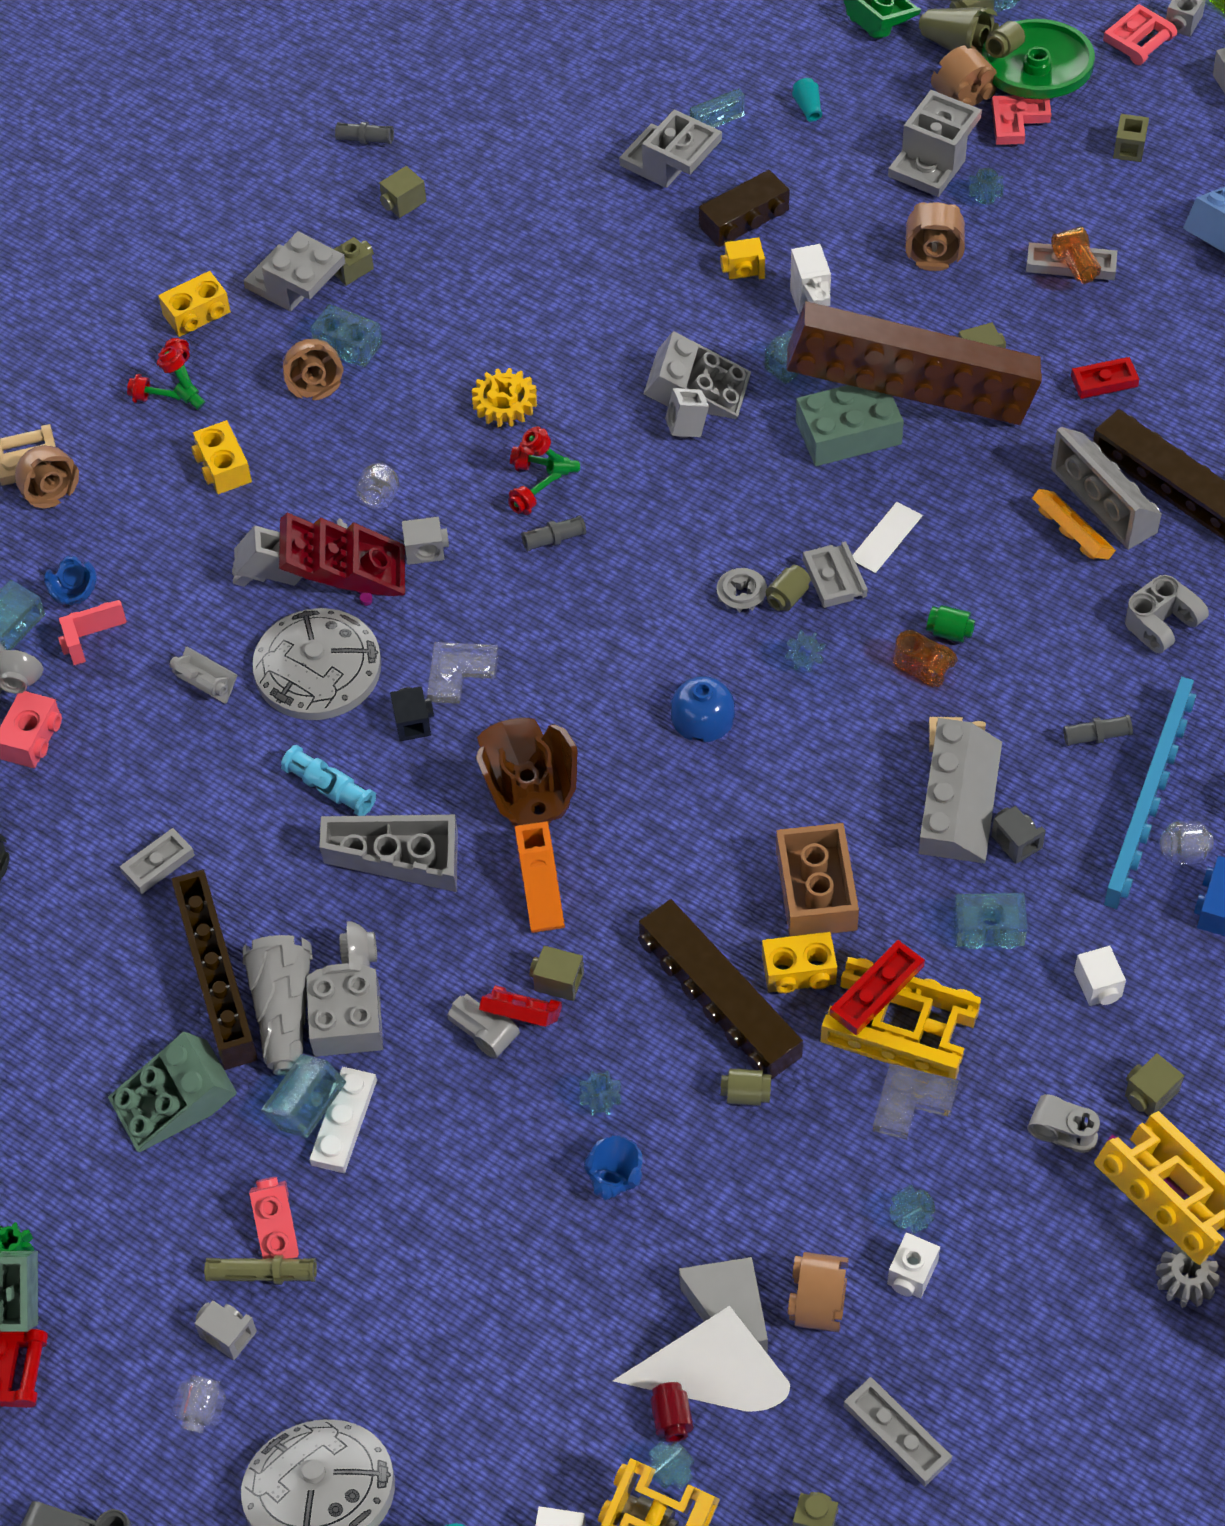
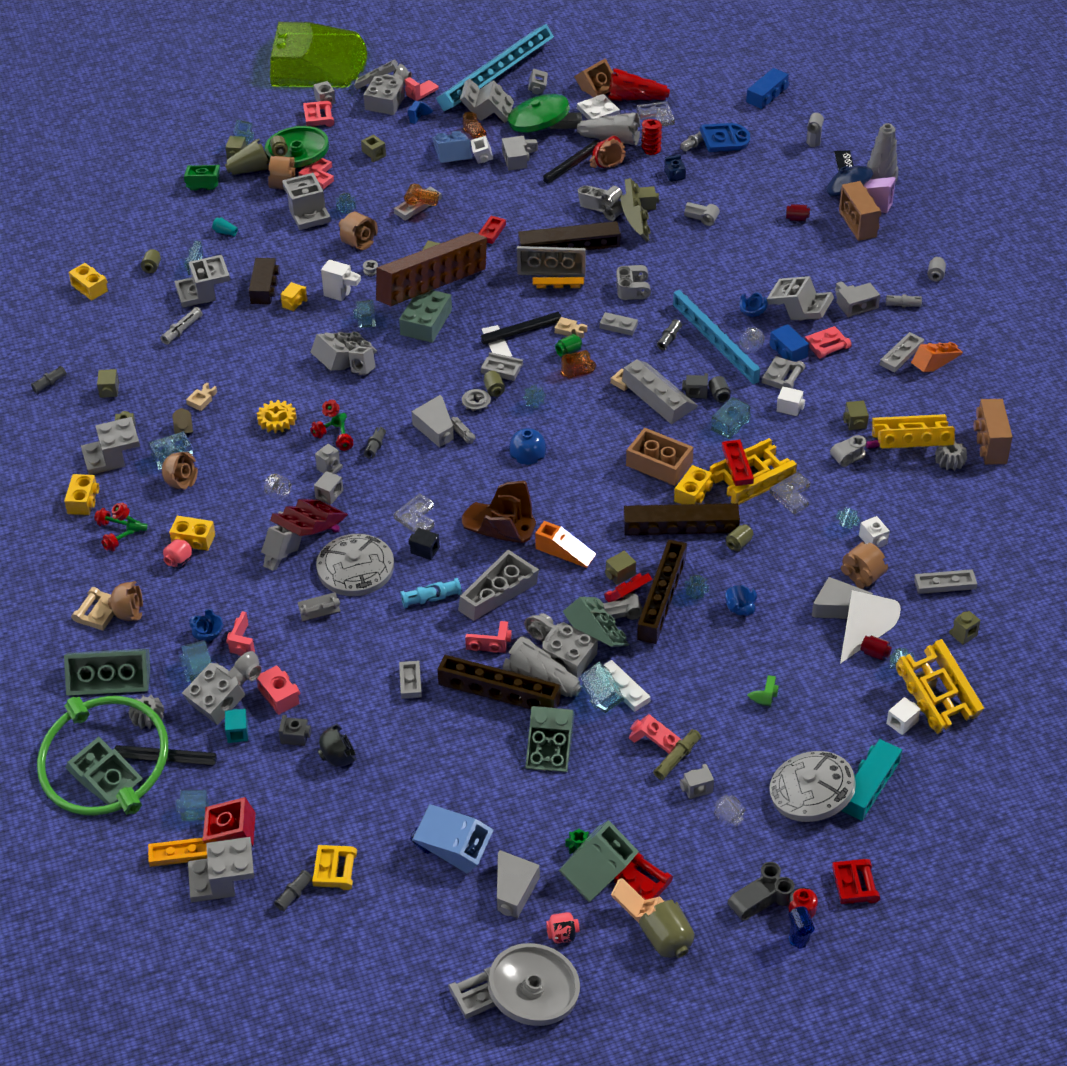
camera: 55 degrees left, 10 degrees down
(171, 466) = (177, 553): none -> coral head
(305, 919) = (490, 643): none -> coral bracket
(406, 311) = (182, 421): none -> dark tan plate
(409, 1013) = (590, 618): none -> sand green slope
(464, 1318) = (765, 697): none -> bright green plate
(467, 299) = (202, 398): none -> tan plate
(470, 506) = (328, 459): none -> light grey brick
(547, 1053) = (661, 591): none -> dark brown brick
(570, 44) = (88, 281): none -> yellow brick
(581, 188) = (176, 329): none -> light grey pin
(653, 571) = (434, 421): none -> light grey slope
(668, 75) = (150, 261): none -> olive brick
(668, 612) = (462, 430): none -> light grey axle
(889, 307) = (370, 267): none -> light grey bush
(936, 545) = (520, 328): none -> black axle
(995, 598) = (568, 327): none -> tan plate
(1039, 867) = (719, 389): none -> dark grey brick
(1063, 654) = (618, 323): none -> light grey plate
(1160, 920) = (778, 370): none -> light grey plate

